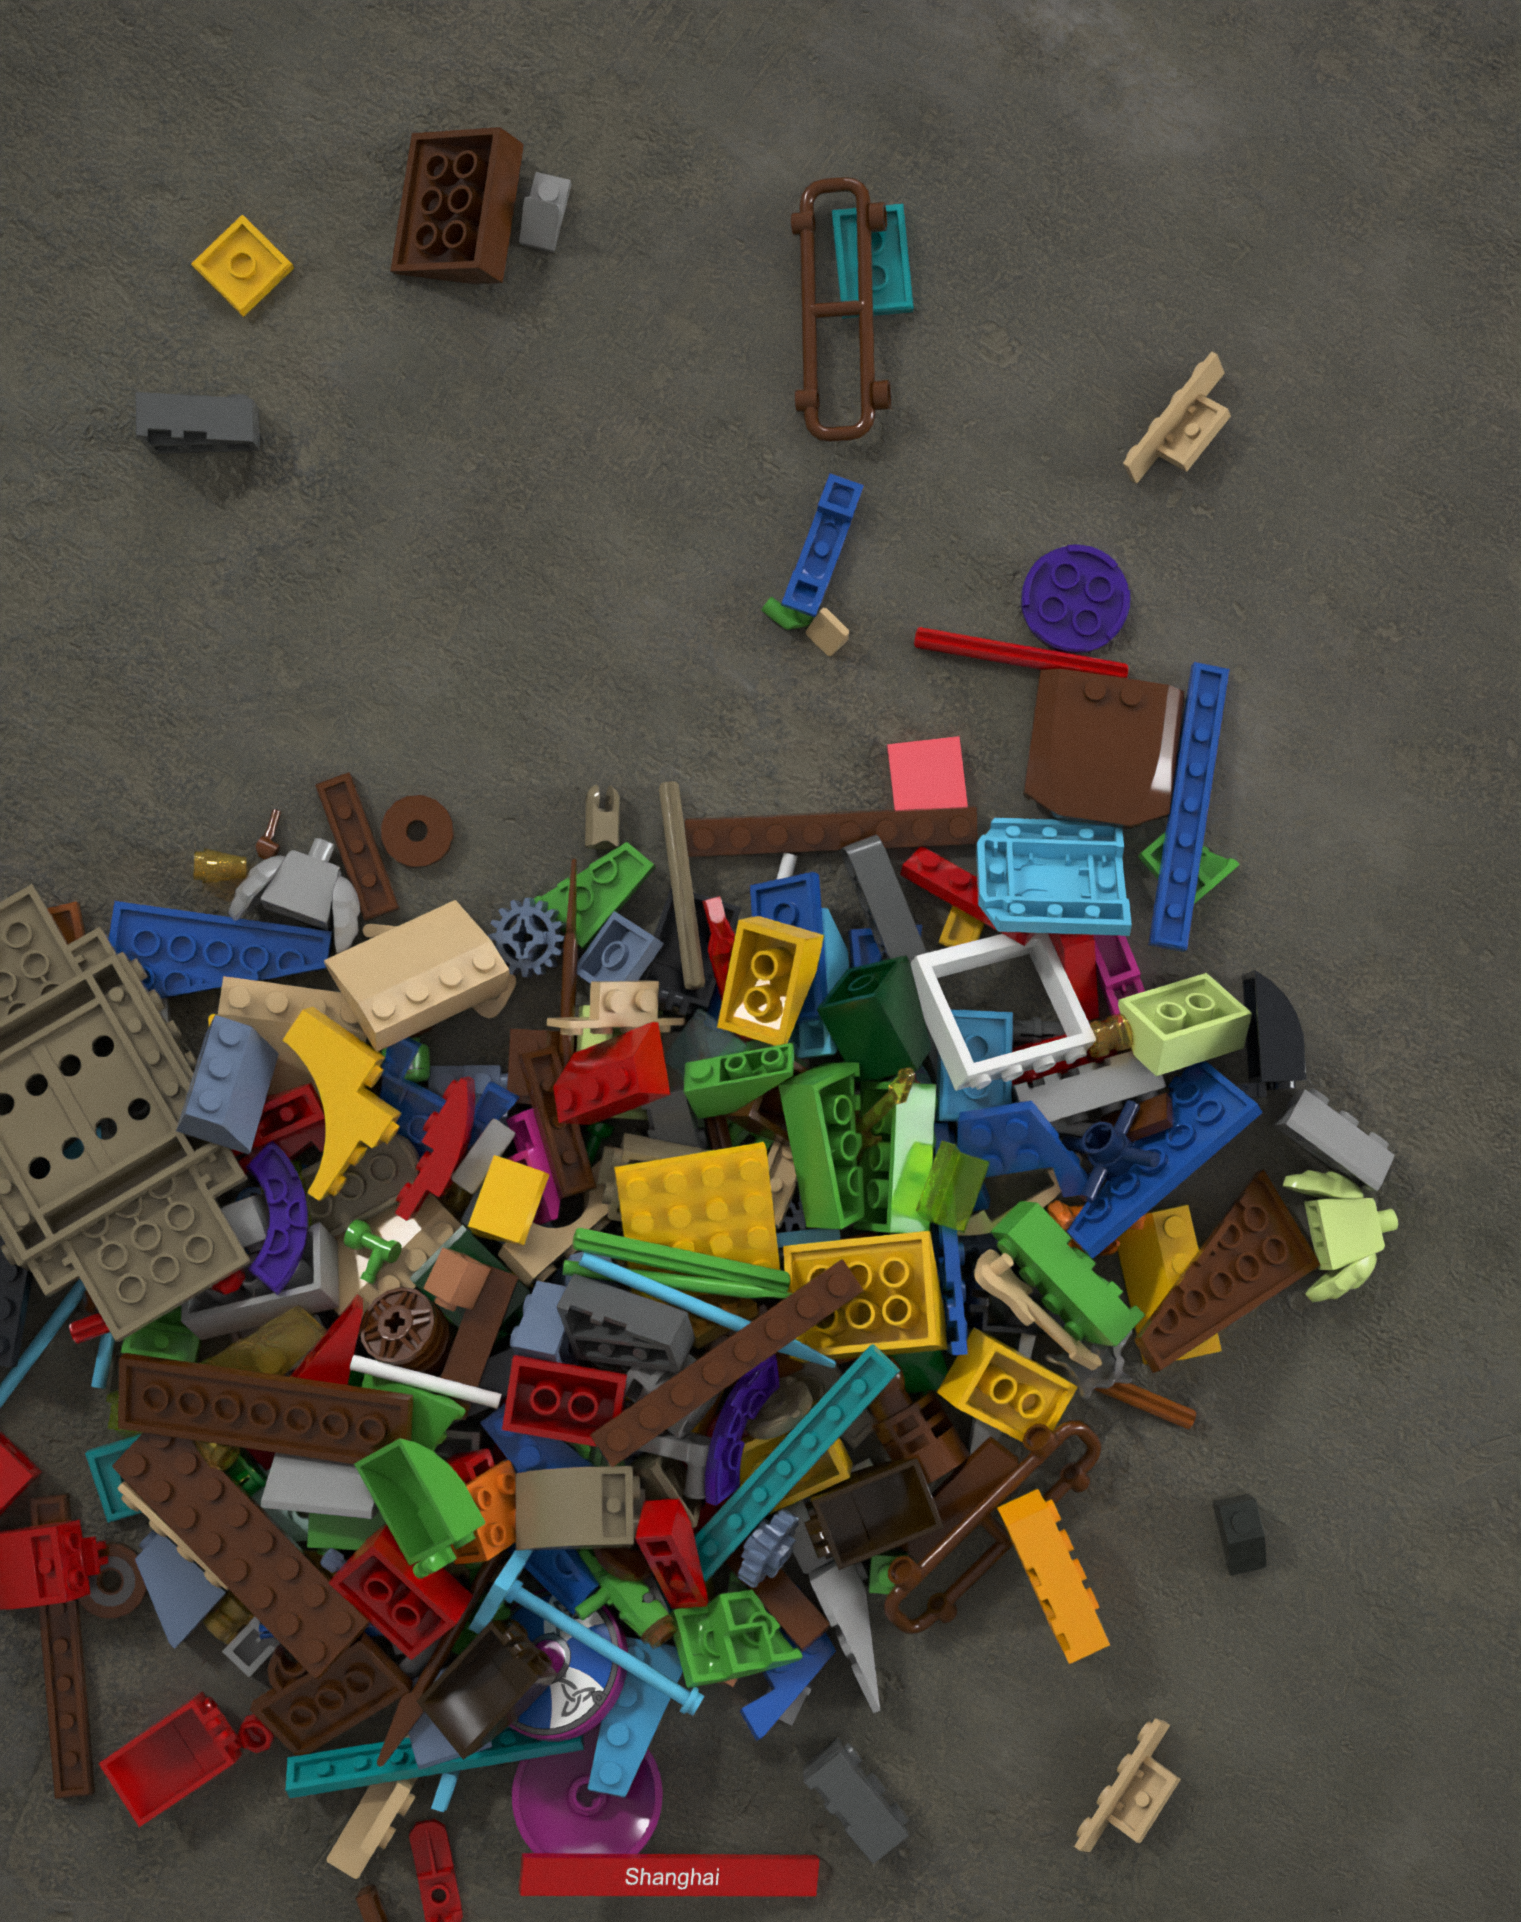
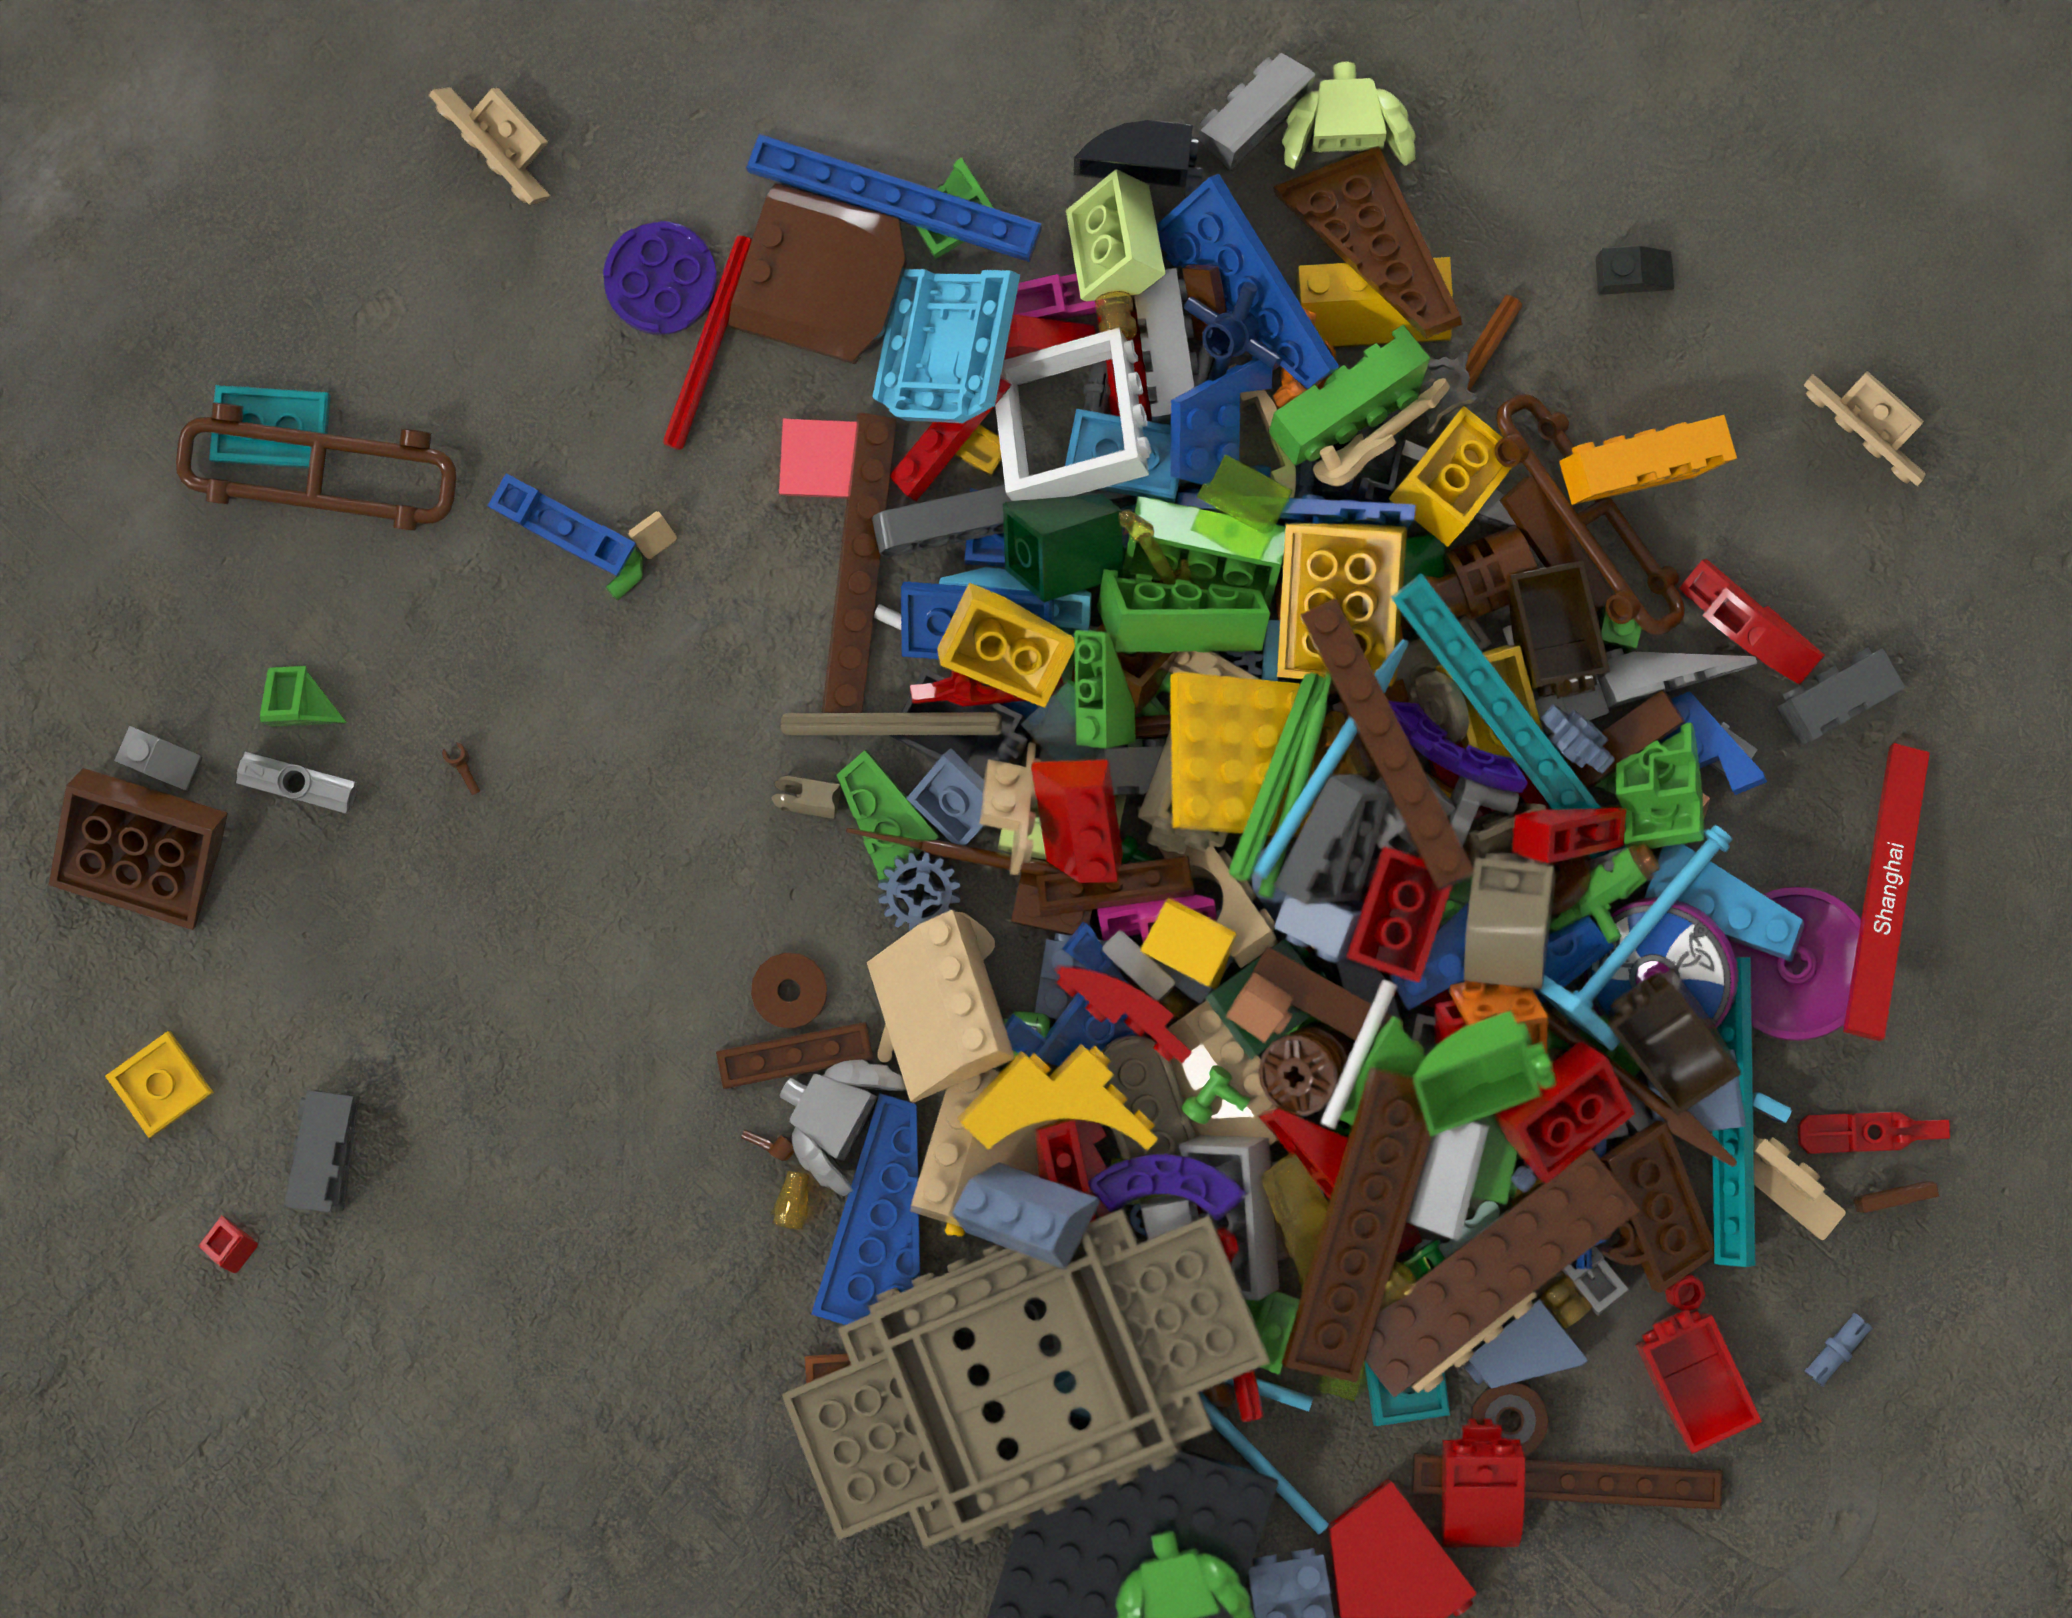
camera: 80 degrees left, 0 degrees up
(103, 353) = (228, 1245): none -> red slope
(224, 1890) = (1838, 1349): none -> sand blue pin
(541, 321) = (274, 777): none -> light grey piece
(579, 493) = (462, 767): none -> reddish brown hand
(620, 327) = (295, 700): none -> bright green slope
(911, 1699) = (1749, 624): none -> red slope

